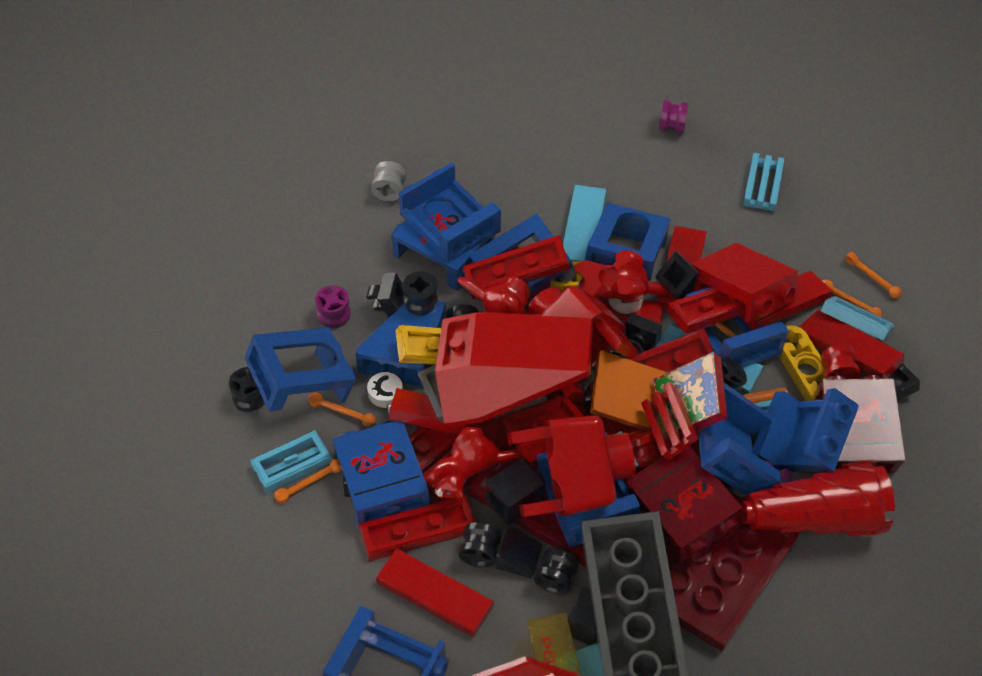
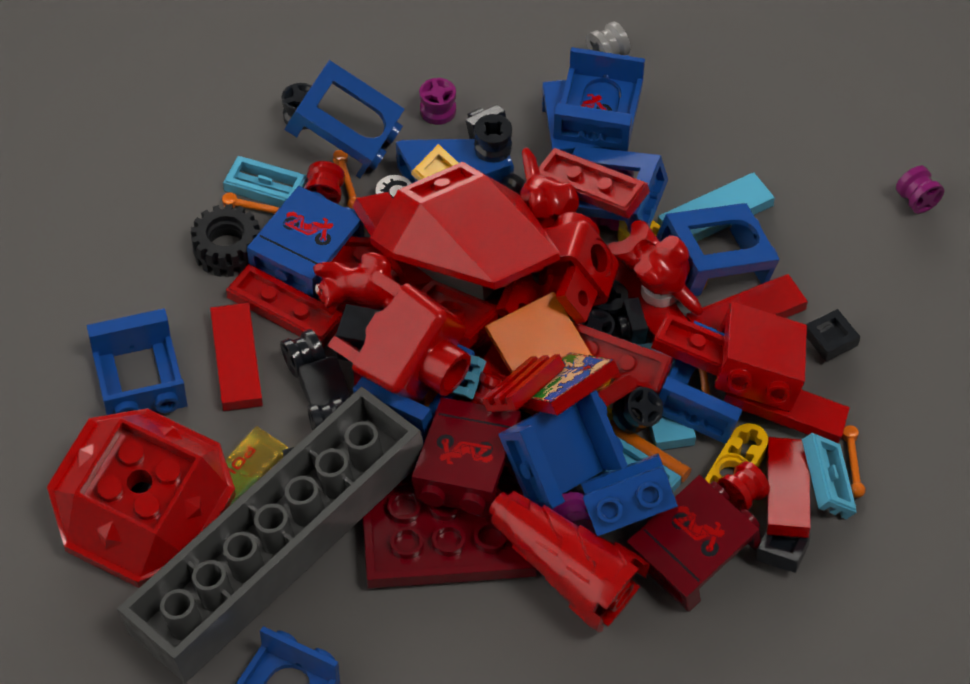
camera: 50 degrees right, 0 degrees up
(317, 504) = (218, 224): none -> black tyre
(335, 421) = (326, 179): none -> red wheel
(678, 276) = (712, 303): black slope -> none
(746, 234) = (832, 335): none -> black plate
(766, 164) = (920, 304): medium azure tile -> none
(894, 291) = (901, 490): orange hinge -> none

